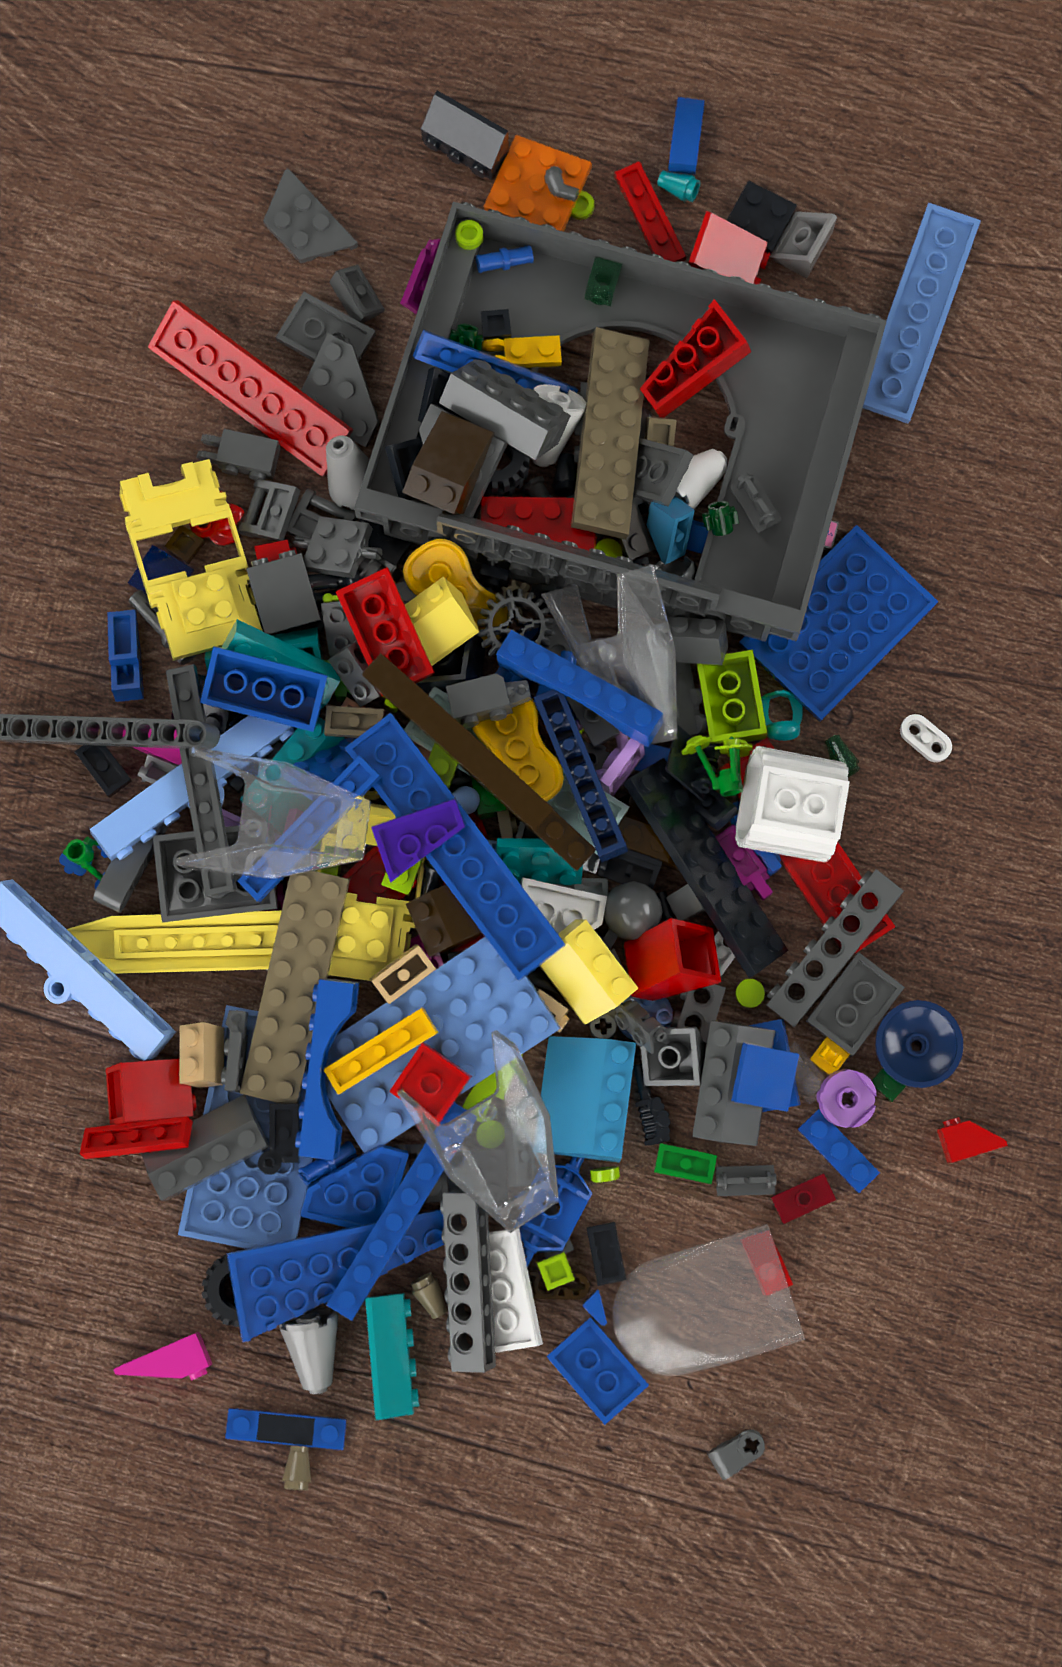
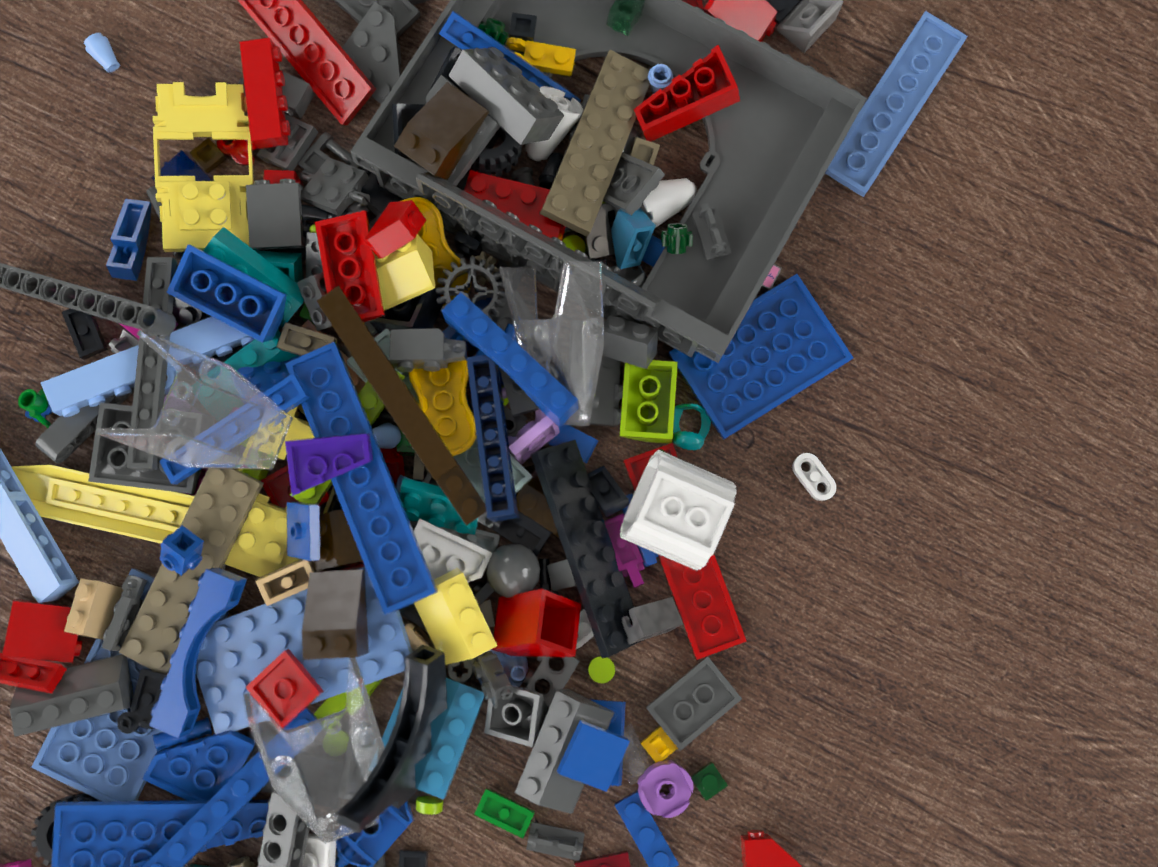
camera: 10 degrees right, 0 degrees up
(35, 455) = (101, 51): none -> light blue cone
(235, 462) = (264, 93): none -> red brick
(288, 966) = (181, 550): none -> blue brick
(345, 470) = (356, 114): light grey cone -> none
(380, 1051) = (248, 647): yellow plate -> none
(407, 917) = (303, 531): none -> blue plate
(423, 577) = (395, 228): none -> red slope
(466, 993) = (335, 615): none -> slope
(573, 1106) = (393, 776): none -> black arch
(654, 1117) = (487, 761): black piece -> none
(658, 345) = (659, 77): none -> light blue cone
(689, 768) = (599, 450): black hinge -> none
(730, 779) = (628, 474): green plant -> none
(791, 927) = (651, 620): none -> flat silver hinge
(794, 1010) = (636, 695): dark grey brick -> none
(840, 752) = (734, 472): clear green cone -> none
(939, 1041) = (761, 759): dark blue dish -> none

